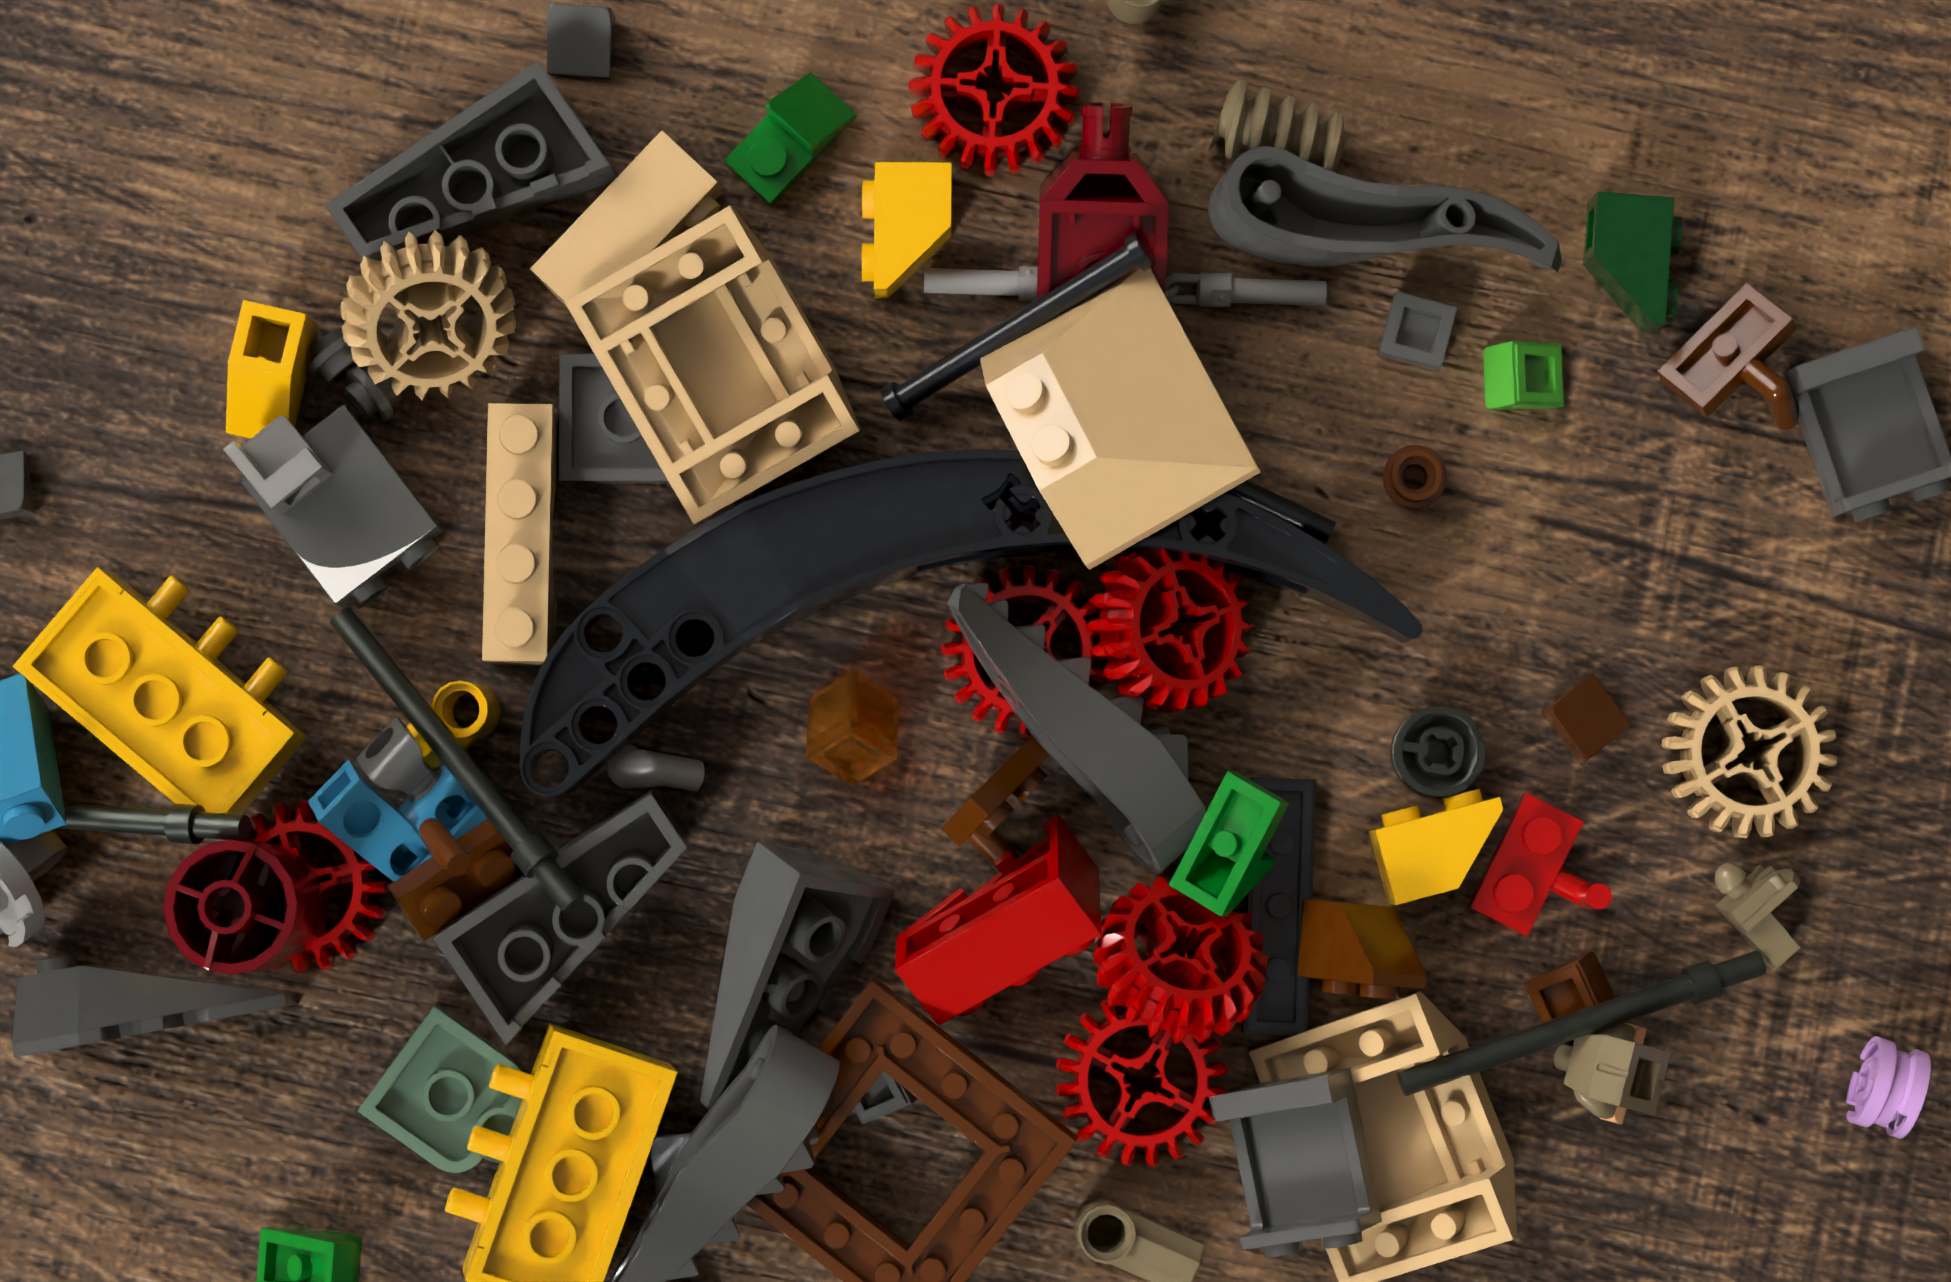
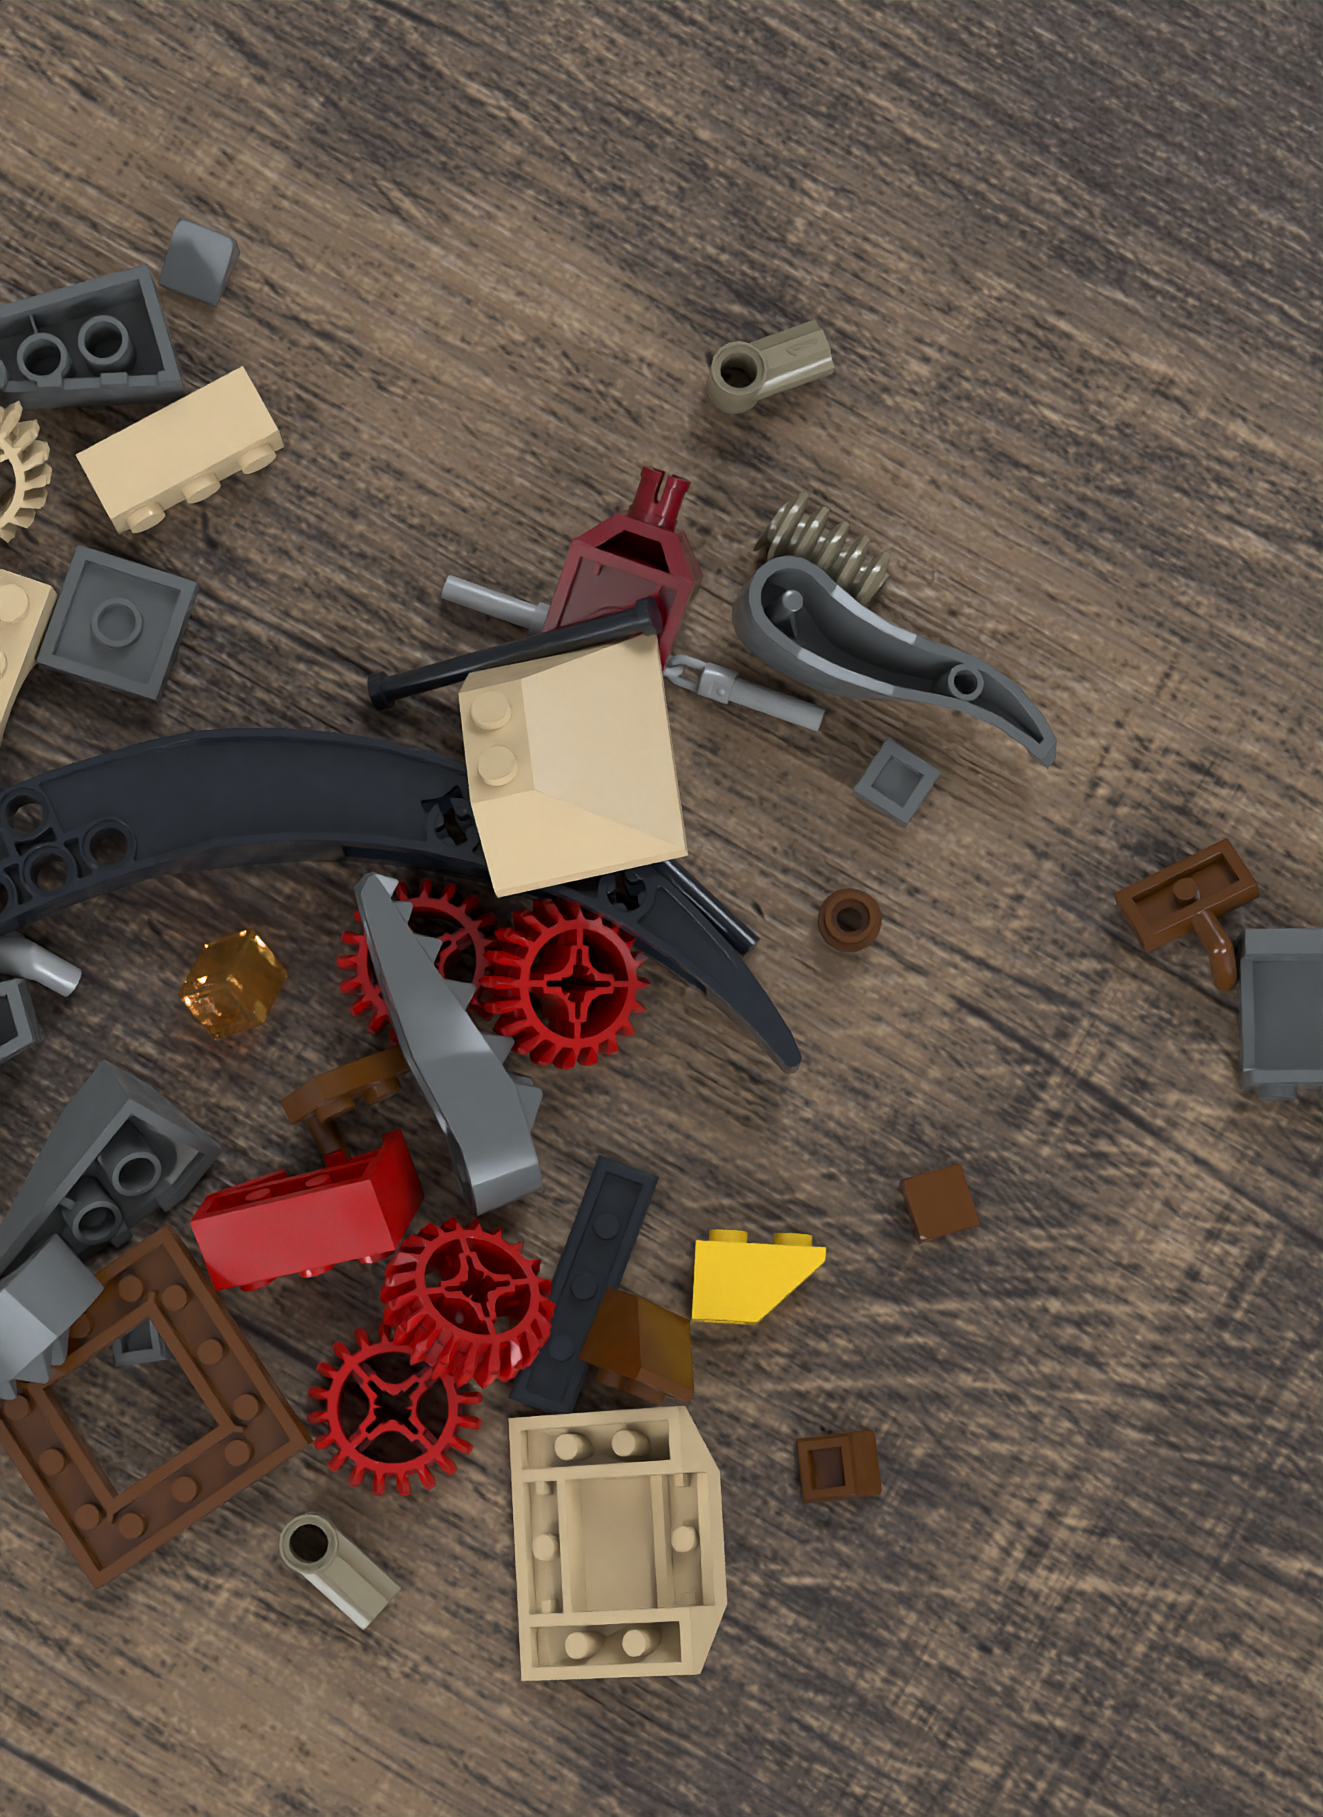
camera: 20 degrees right, 5 degrees down
(715, 363) = (218, 596): tan slope -> none
(789, 138) = (366, 414): green slope -> none
(910, 220) = (449, 525): yellow slope -> none
(1023, 90) = (545, 420): red gear -> none
(1230, 845) = (547, 1209): green slope -> none
(1301, 1161) = (520, 1536): dark grey panel -> none
(1437, 752) = (784, 1187): pearl dark grey wheel -> none
(1523, 376) = (986, 858): bright green slope -> none
(1530, 866) = (838, 1328): red plate -> none
(1614, 1071) = (851, 1549): dark tan piece -> none
(1630, 254) = (1123, 773): dark green slope -> none
(1698, 983) = (960, 1491): pearl dark grey bar -> none
(1732, 727) = (1088, 1315): tan gear -> none
(1750, 908) = (1035, 1435): dark tan piece -> none
(1889, 1087) = (1113, 1653): lavender wheel -> none

